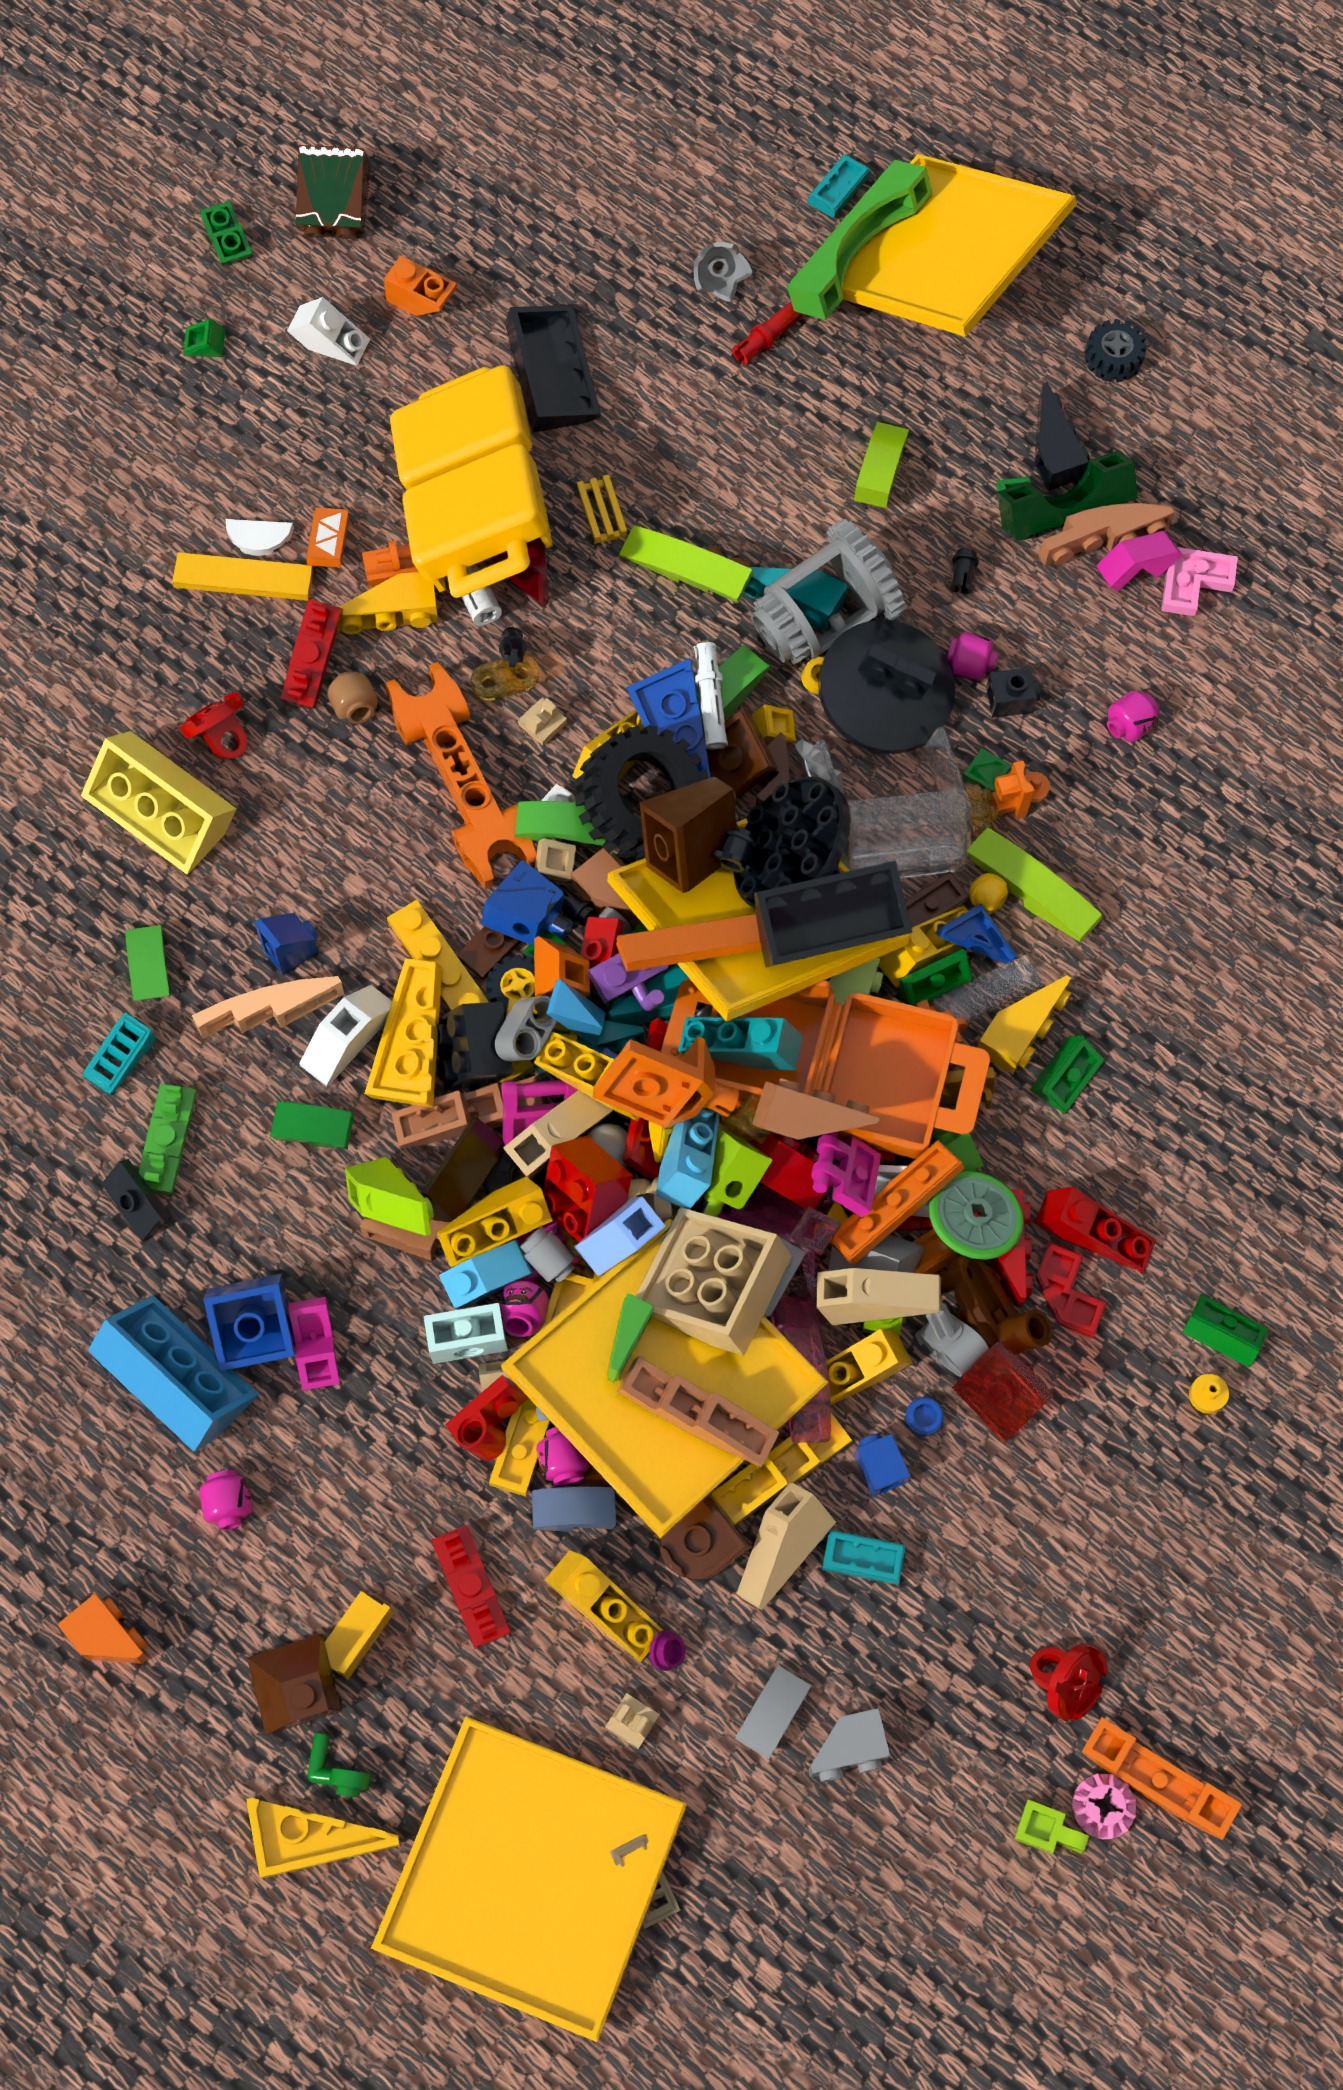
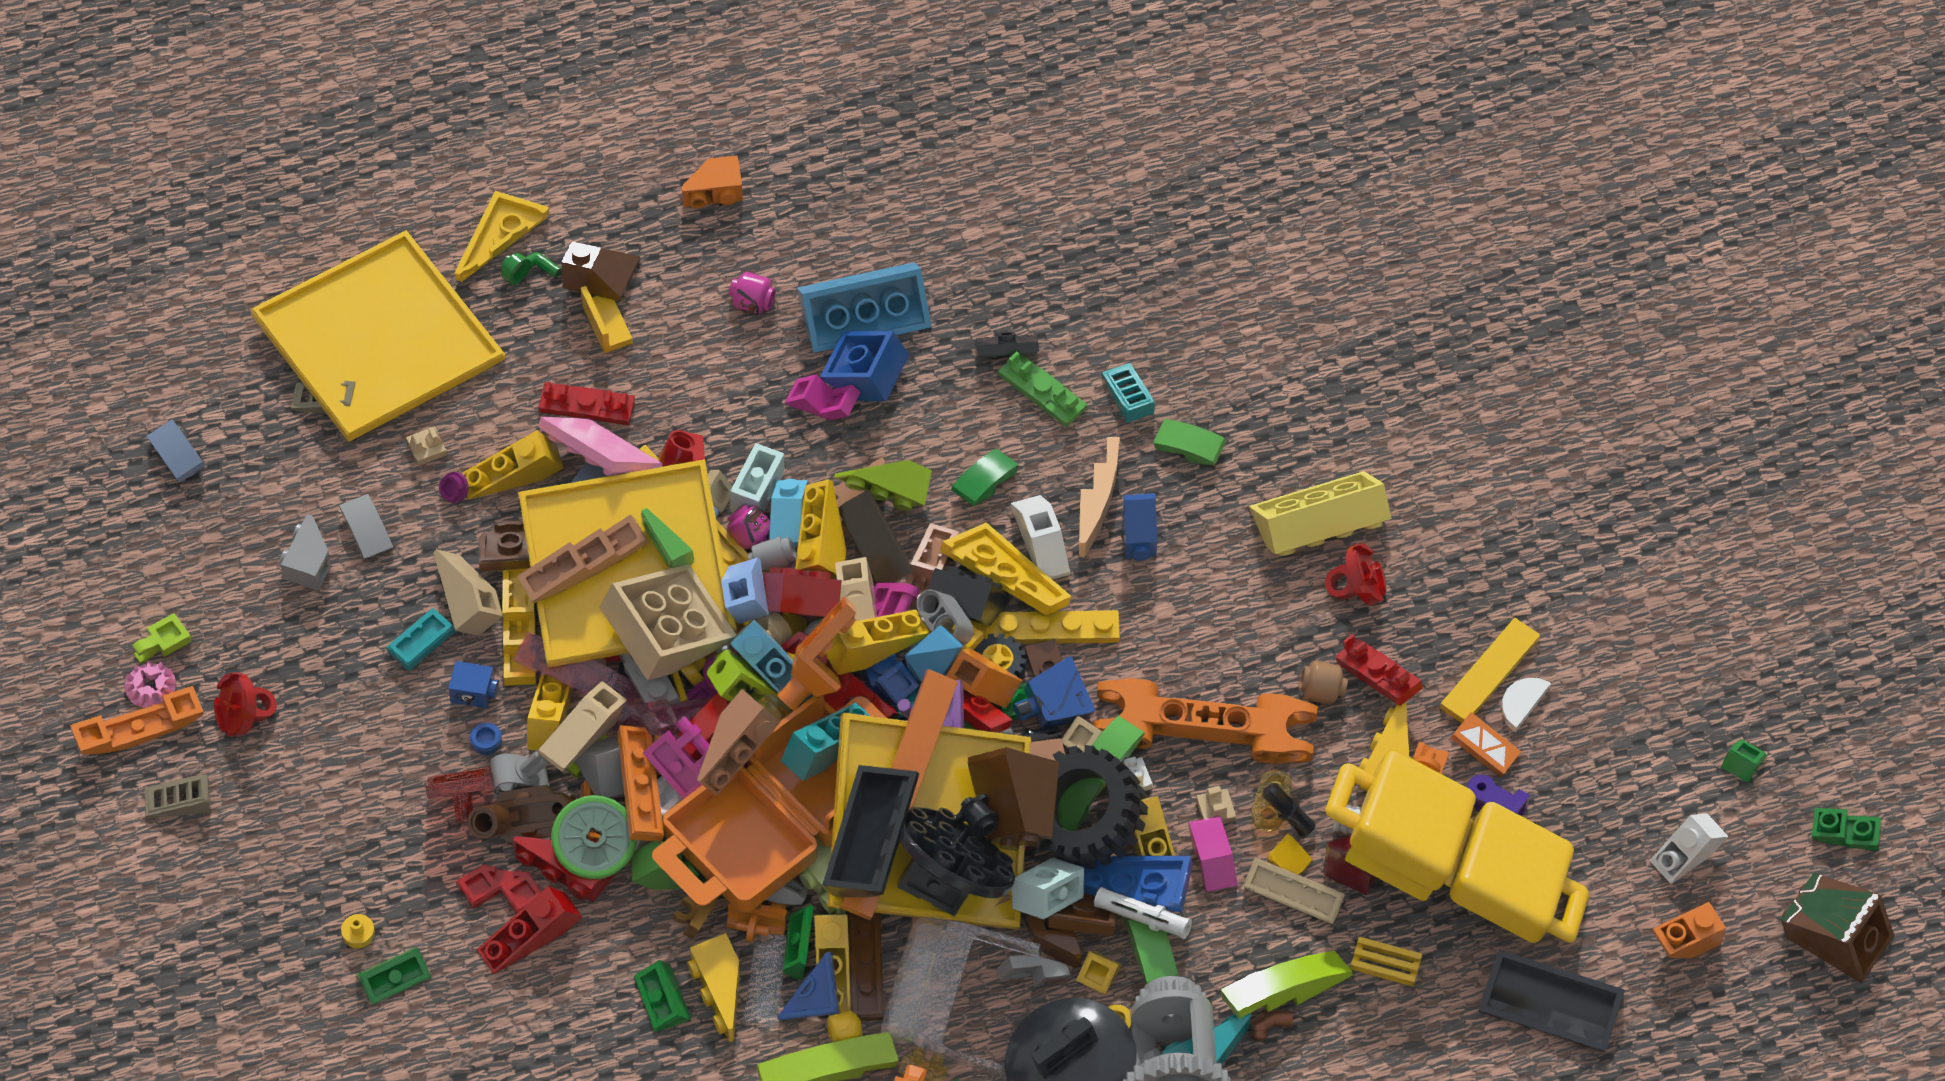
camera: 125 degrees right, 10 degrees down
(383, 508) = (1487, 791): none -> dark purple leg
(536, 1508) = (597, 445): none -> bright pink tile
(554, 635) = (1290, 856): none -> yellow slope
(586, 610) = (1294, 890): none -> tan plate
(592, 693) = (1214, 853): none -> dark pink slope
(615, 1038) = (897, 683): none -> blue tile
(758, 780) = (1048, 888): none -> light aqua brick
(823, 1994) = (175, 451): none -> sand blue slope
(1184, 1673) = (189, 806): none -> dark tan slope

